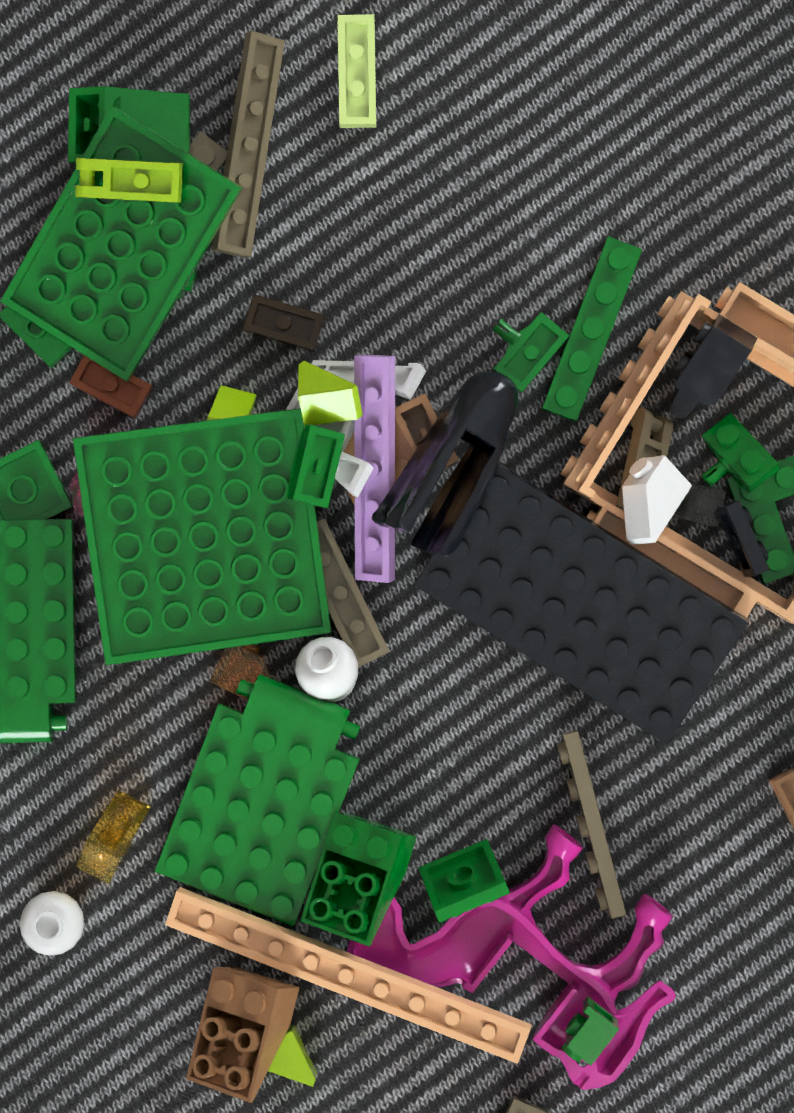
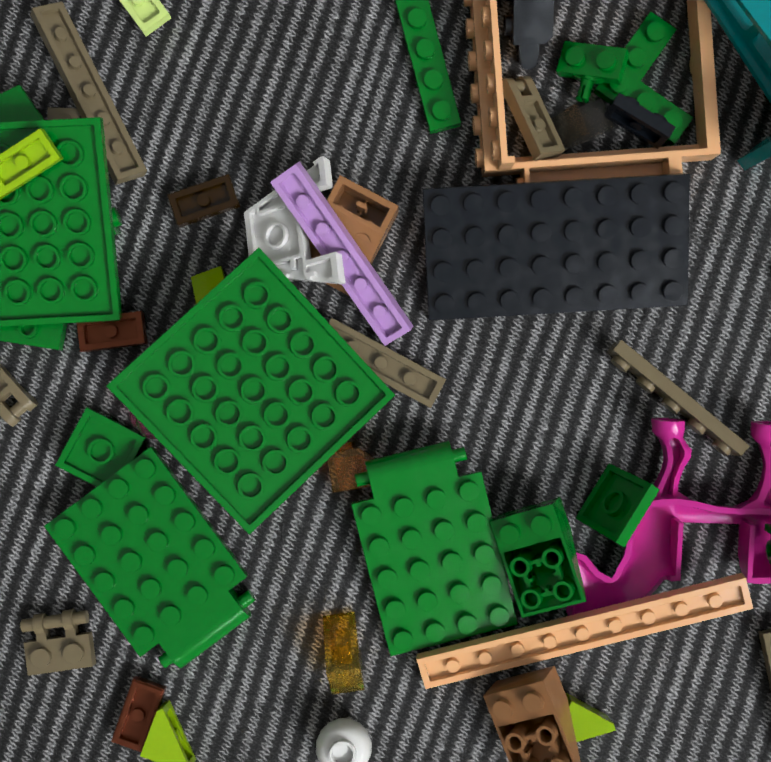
camera: 30 degrees left, 0 degrees up
(316, 466) = (299, 280): green plate -> none
(326, 397) = (271, 225): lime slope -> none
(327, 669) = (410, 423): white piece -> none
(477, 415) = (389, 165): black piece -> none
(528, 349) = (390, 97): green plate -> none
(651, 498) = (556, 134): white slope -> none

